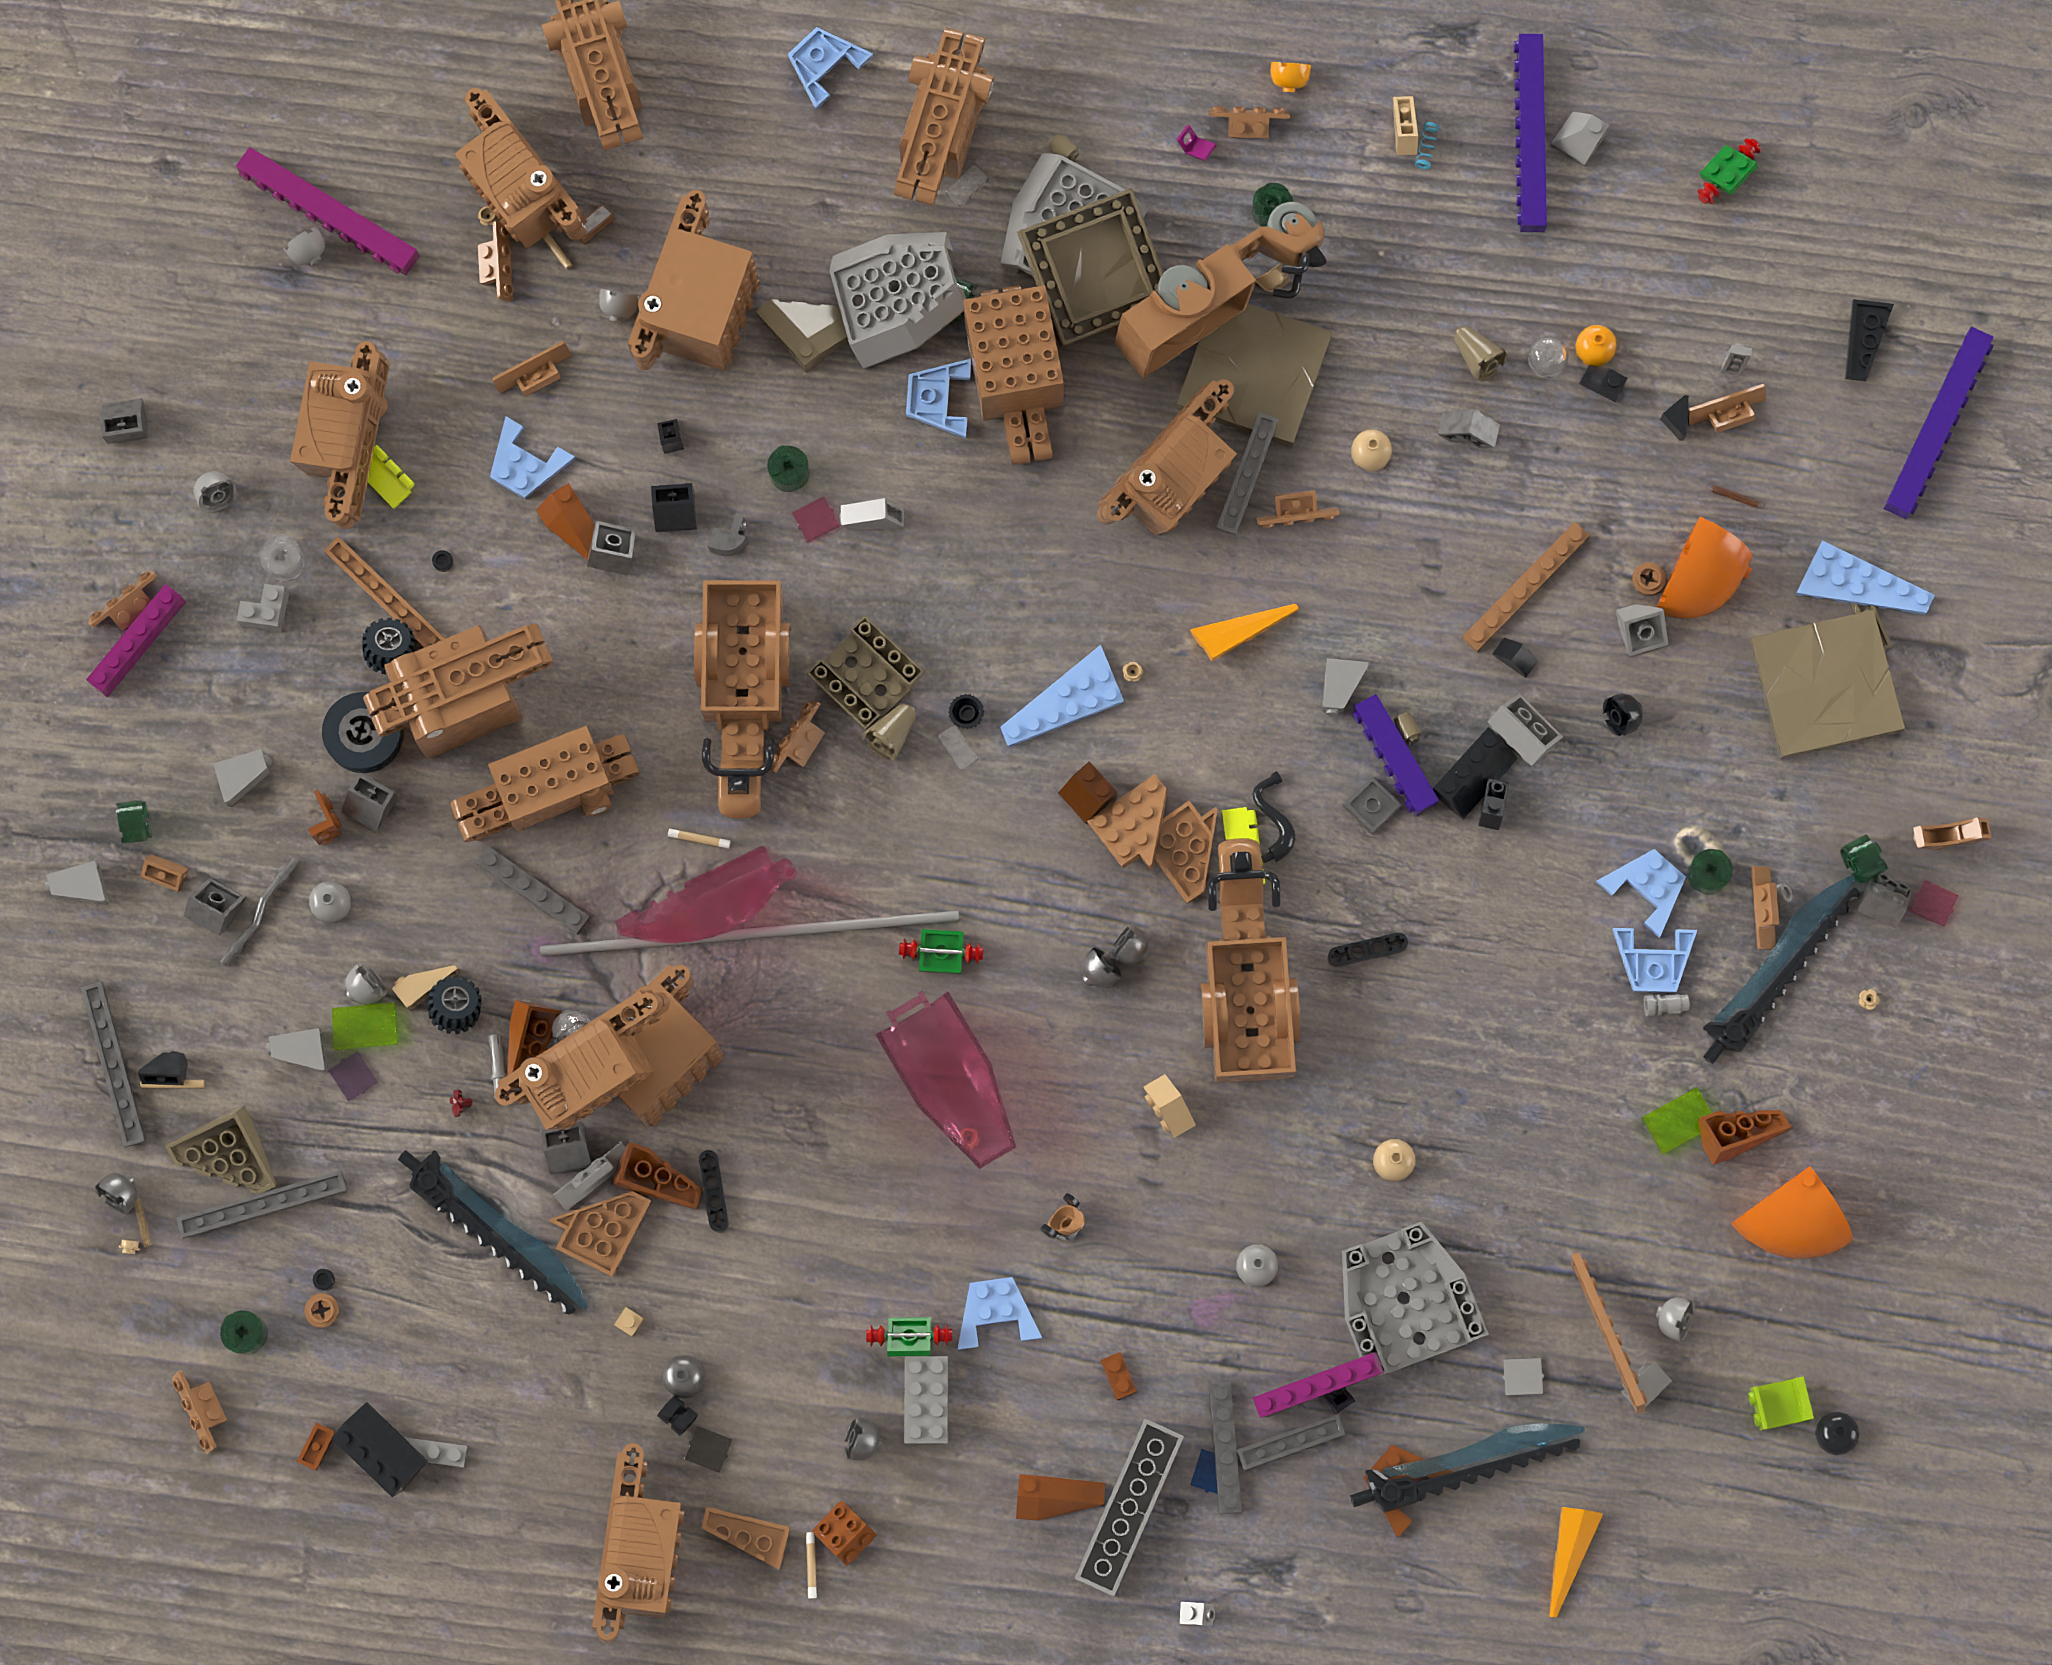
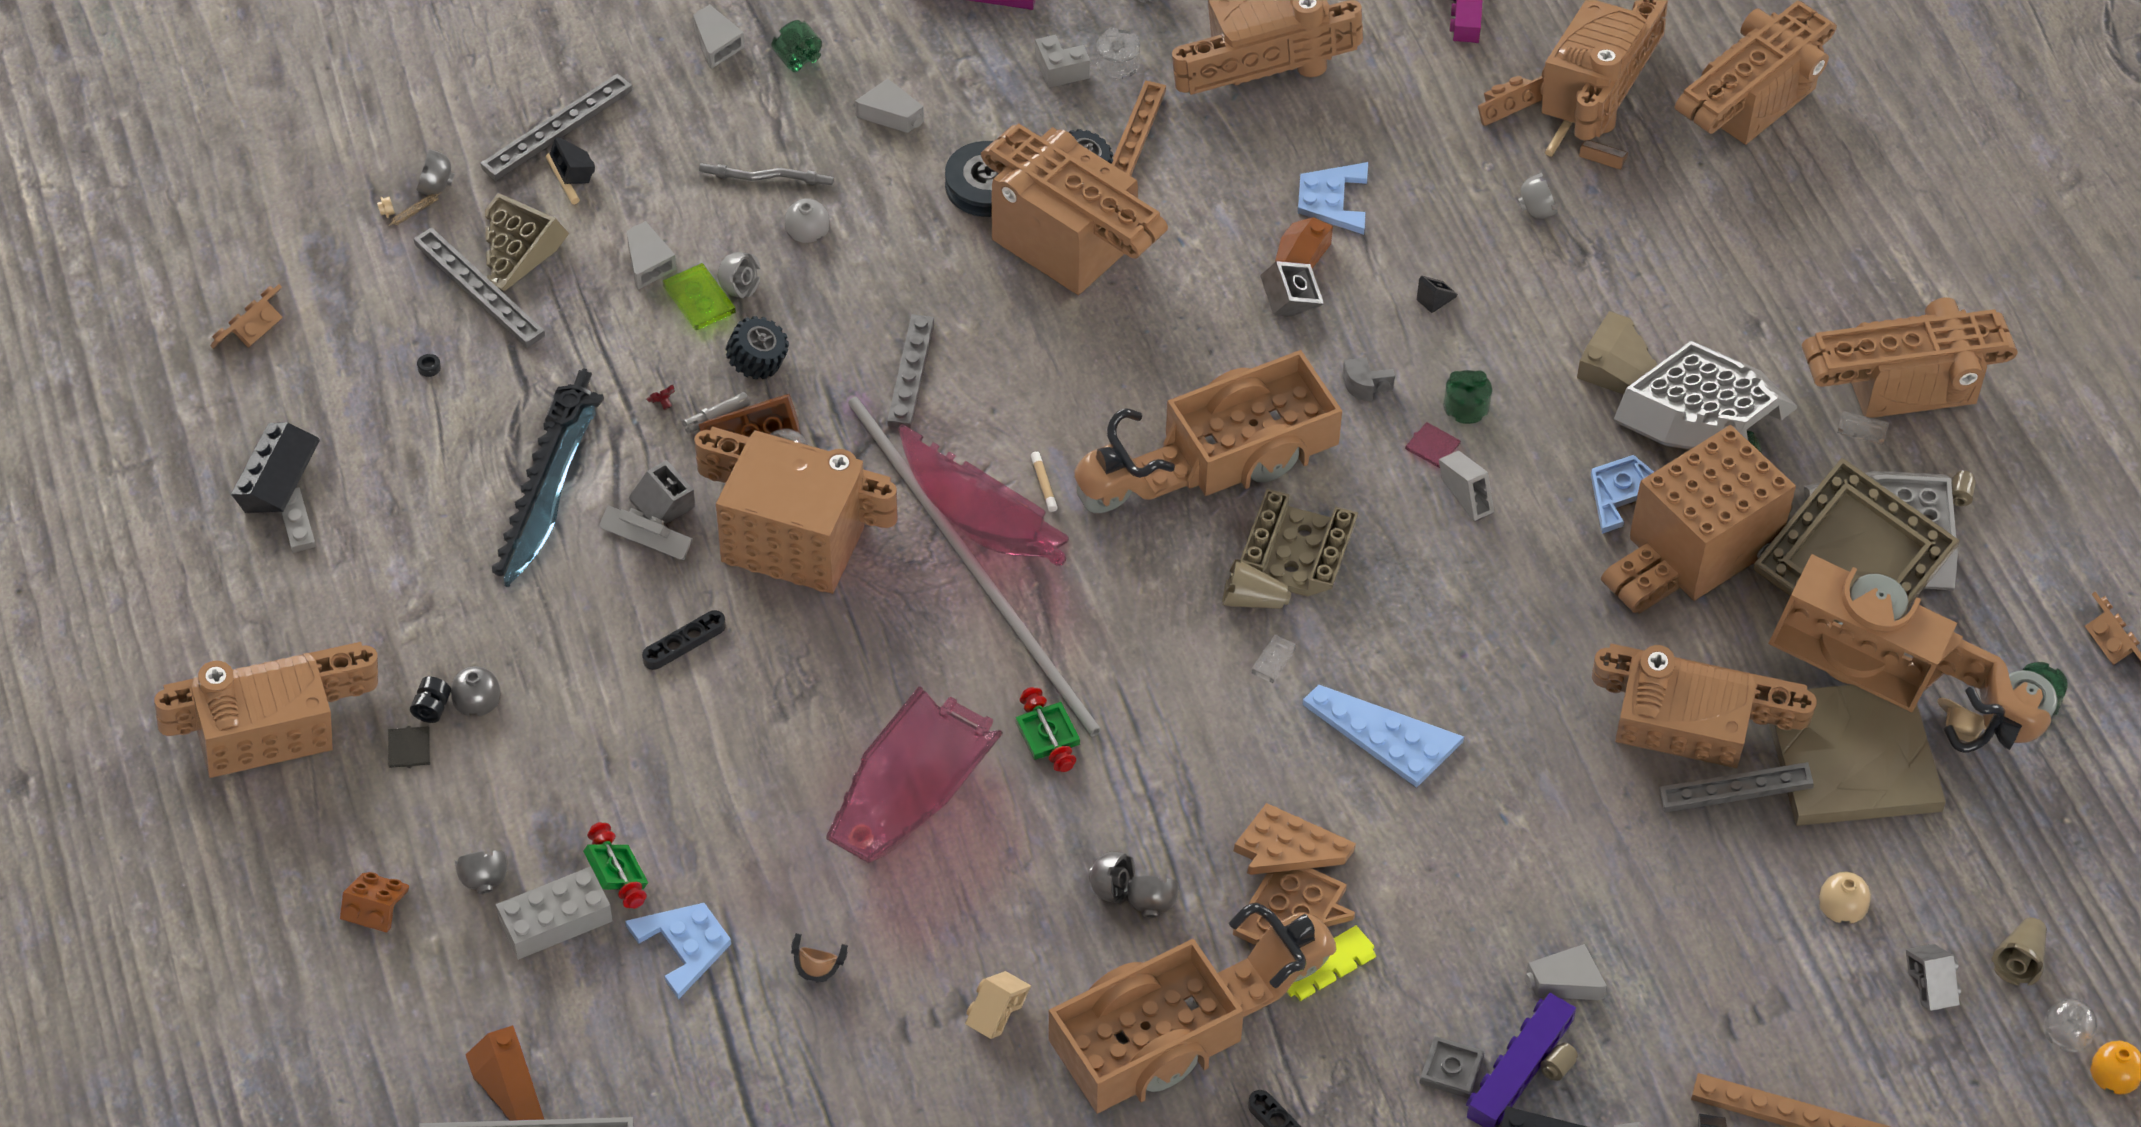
camera: 60 degrees right, 25 degrees down
(164, 872) = (763, 92): medium nougat slope -> none
(213, 906) = (751, 136): flat silver slope -> none
(237, 1322) = (343, 320): clear green brick -> none
(313, 1305) = (399, 367): medium nougat gear -> none
(316, 1446) = (253, 421): dark orange plate -> none
(329, 829) = (880, 184): dark orange bracket -> none
(353, 1076) = (644, 308): clear purple piece -> none
(368, 802) = (922, 207): flat silver slope -> none
(385, 481) = (1248, 101): neon yellow windscreen -> none
(417, 986) = (758, 307): tan slope -> none
(442, 561) = (1194, 174): black tile -> none
(533, 372) = (1427, 164): medium nougat bracket -> none
(547, 783) = (1025, 327): medium nougat piece -> none
(587, 1065) = (742, 425): medium nougat piece -> none
(602, 1230) = (593, 562): medium nougat wing -> none
(629, 1321) = (510, 624): tan plate -> none
(650, 1176) = (670, 578): dark orange wedge -> none
(673, 507) = (1366, 321): black slope -> none
(694, 294) = (1586, 237): medium nougat piece -> none
(754, 1536) = (333, 820): medium nougat wing -> none
(800, 740) = (1195, 523): medium nougat bracket -> none
(811, 1565) = (325, 886): tan bar -> none
(820, 54) = (1898, 254): light blue wing -> none
(966, 711) = (1315, 646): black hat -> none
(1087, 792) = (1299, 789): reddish brown slope -> none
(1118, 1376) = (672, 1087): dark orange plate -> none
(1127, 671) = (1454, 773): tan plate -> none
(1195, 146) = (2053, 602): magenta bracket -> none
(1228, 634) = (1544, 843): light orange wedge -> none
(1286, 831) = (1364, 996): black animal -> none
(1296, 507) = (1734, 850): medium nougat bracket -> none
(1604, 381) = (2082, 1094): black slope -> none

